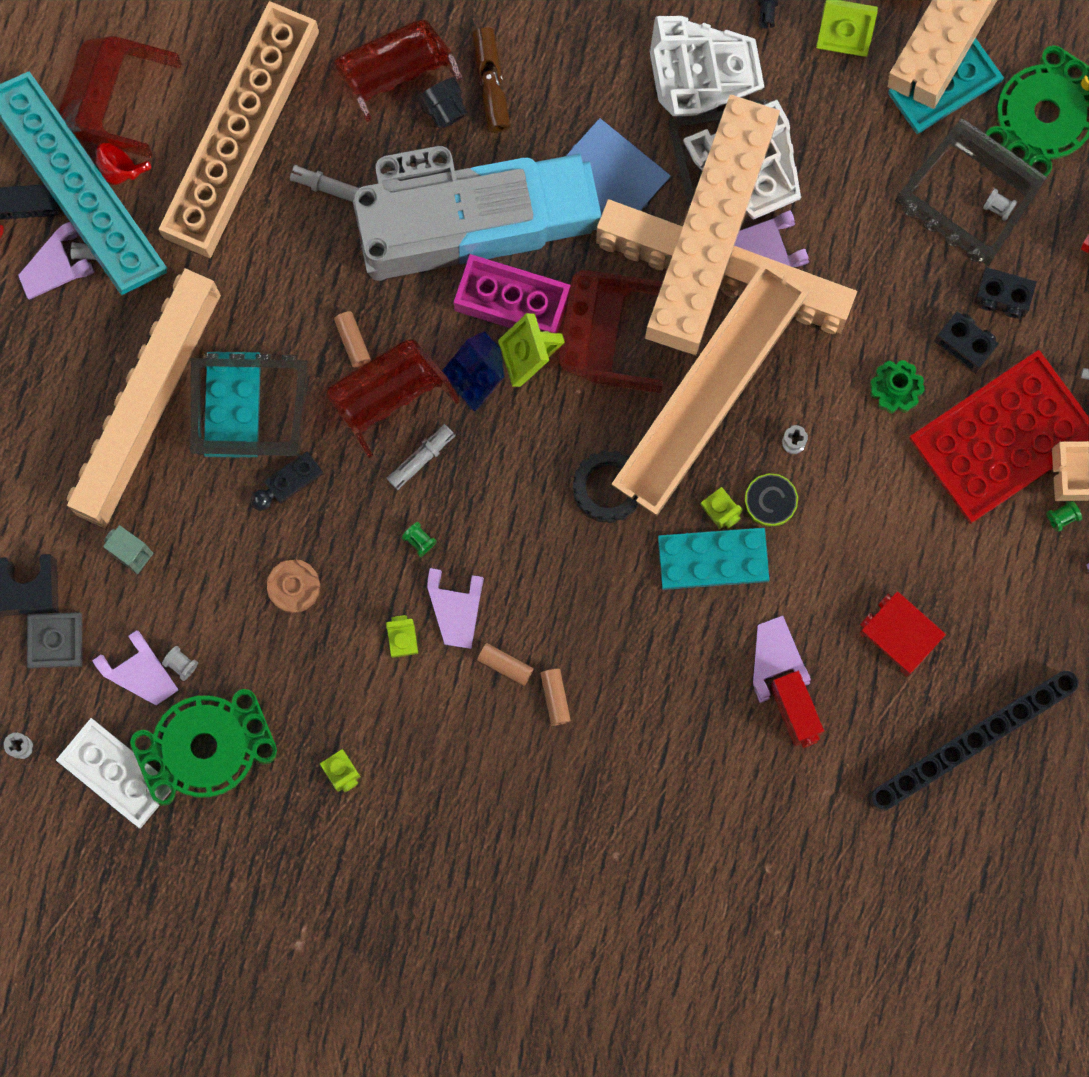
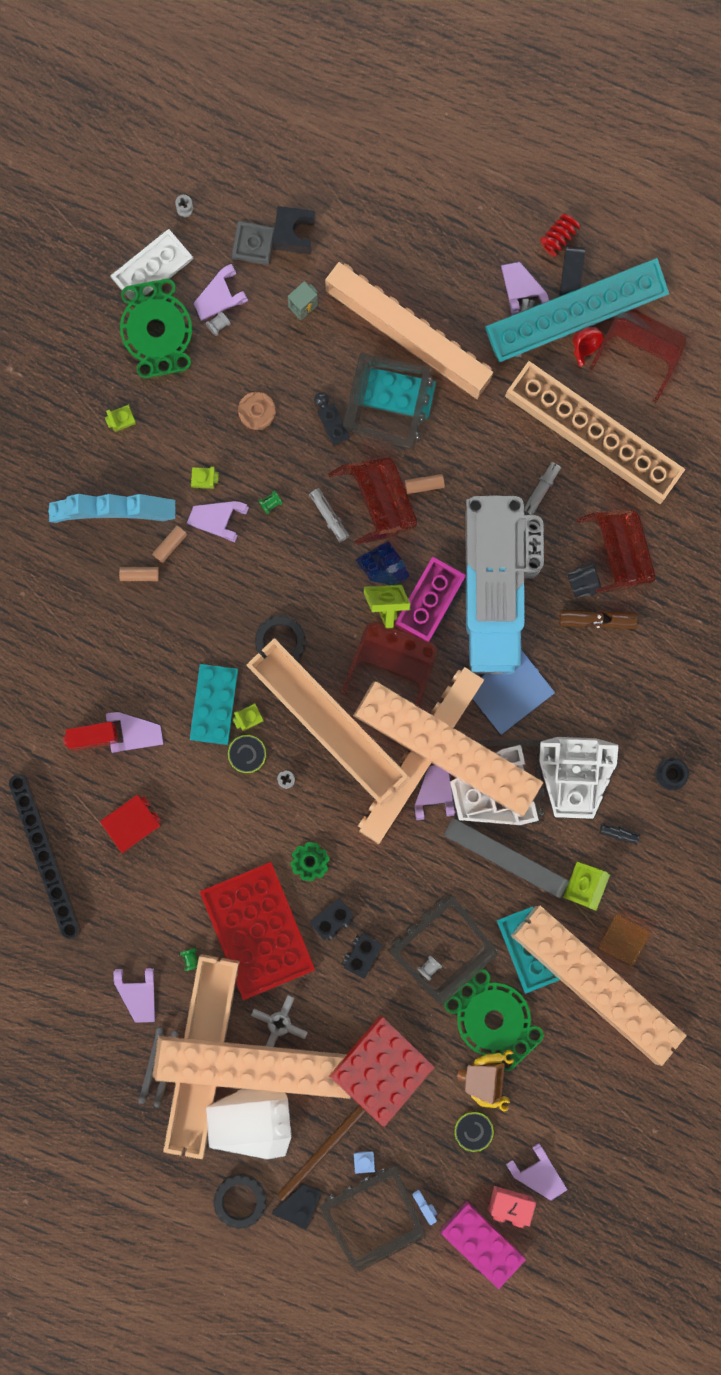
camera: 90 degrees right, 5 degrees up
(474, 753) = (112, 506): none -> medium azure arch
(833, 136) = (506, 858): none -> dark grey beam

